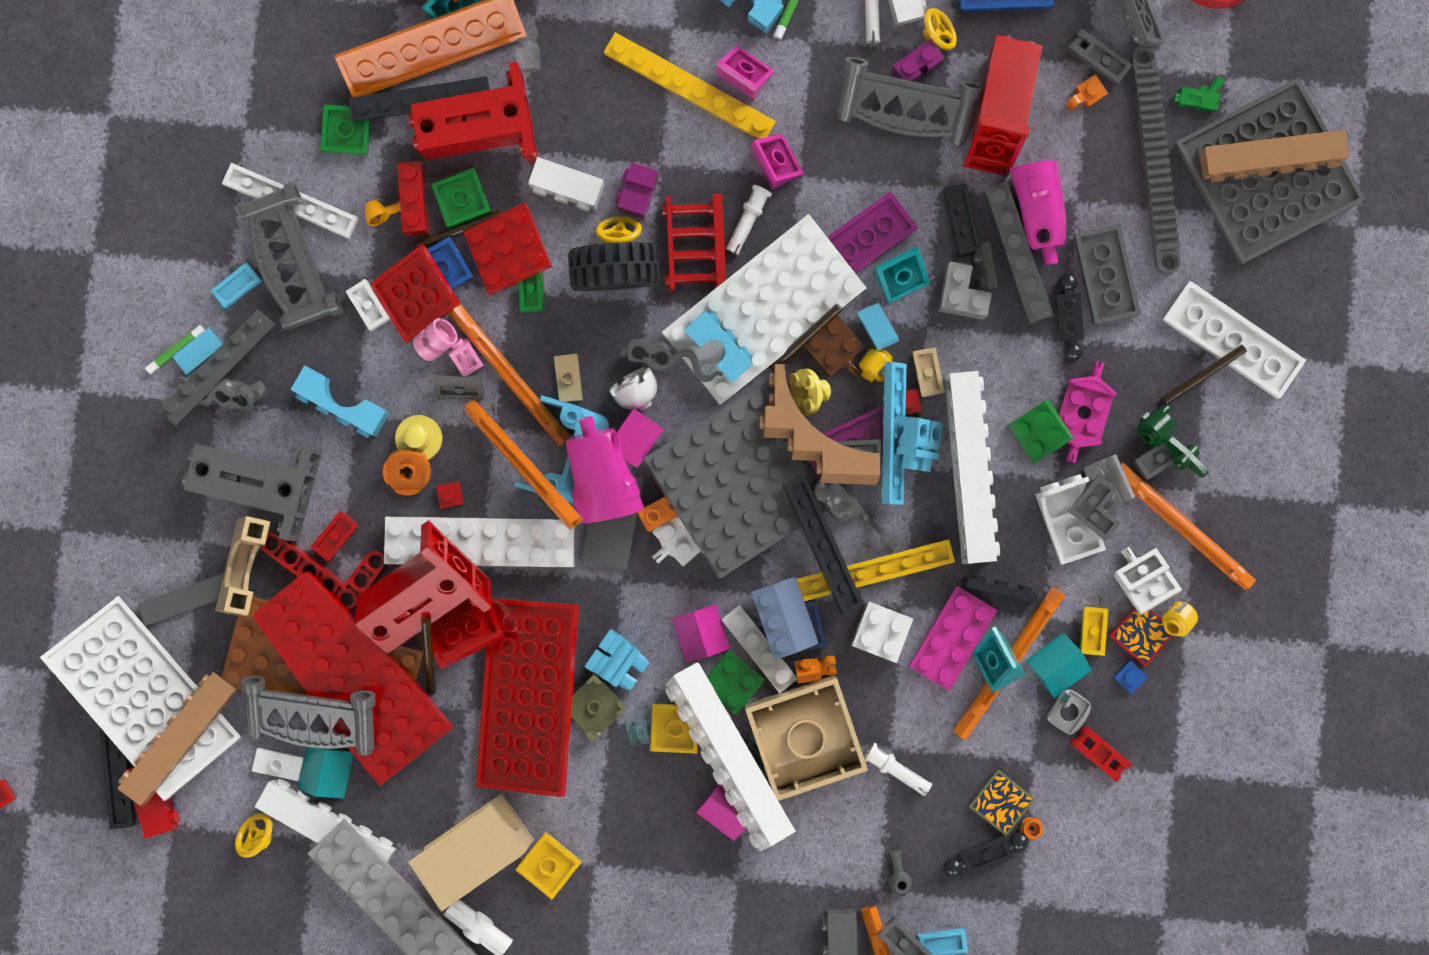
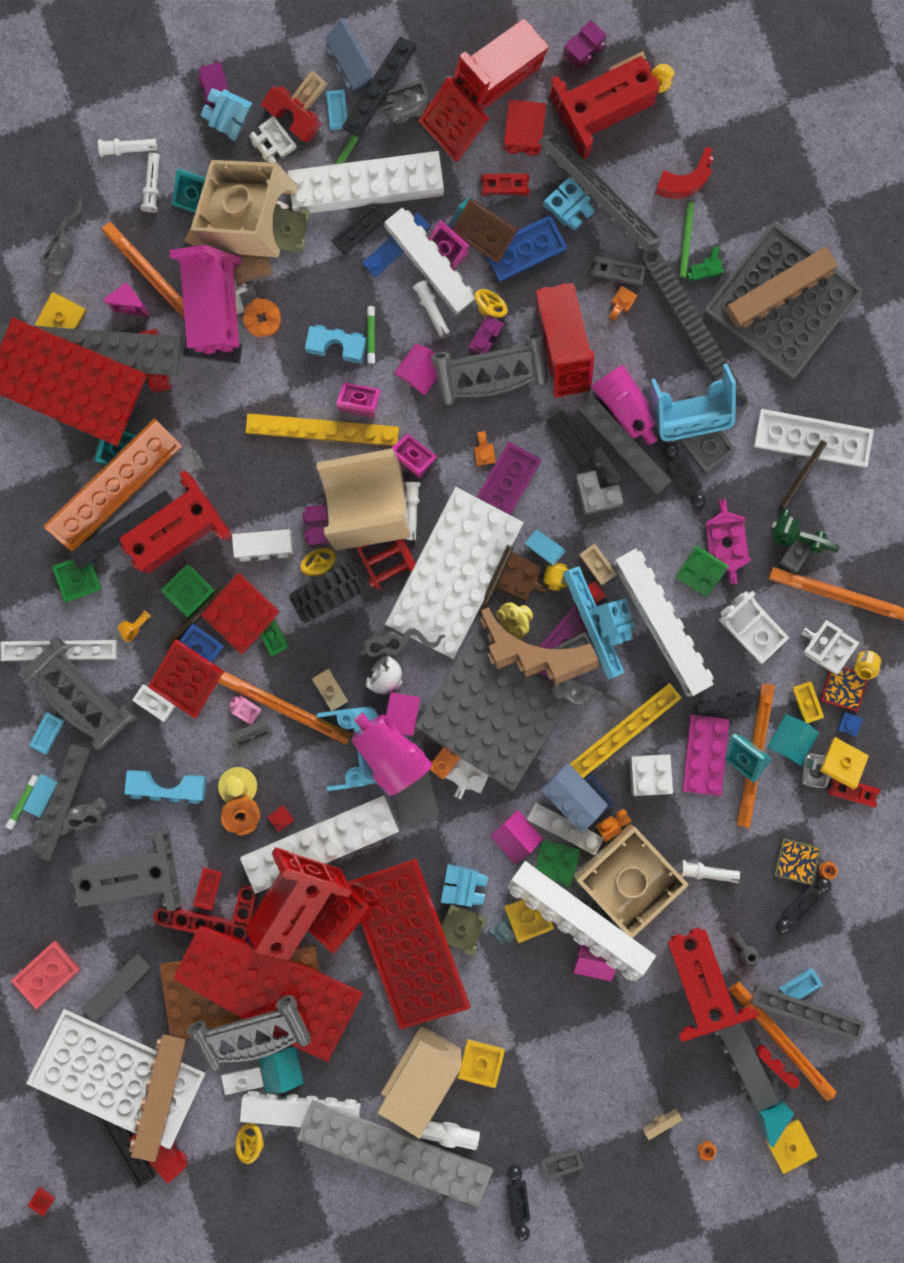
camera: 30 degrees left, 0 degrees up
(115, 550) = (45, 975): none -> coral tile
(247, 538) = (142, 923): tan arch -> none
(412, 199) = (149, 604): red arch -> none
(428, 655) = (320, 947): dark brown bar -> none
(435, 339) = (217, 706): bright pink wheel -> none
(523, 465) = (326, 772): orange piece -> none
(701, 182) = (364, 499): none -> tan piece
(706, 328) = (418, 607): medium azure arch -> none
(823, 545) = (578, 730): black plate -> none
(825, 67) = (418, 369): none -> dark pink slope
(834, 892) = (704, 986): none -> red brick
(857, 192) = (484, 453): none -> orange plate
(902, 275) = (545, 500): teal slope -> none
(1090, 504) = (763, 612): dark grey plate -> none
(1104, 716) = (844, 763): none -> yellow plate
(1112, 472) = (769, 586): light grey plate -> none
(1113, 254) = (698, 414): none -> medium azure windscreen
(1190, 57) = (686, 240): none -> bright green bar

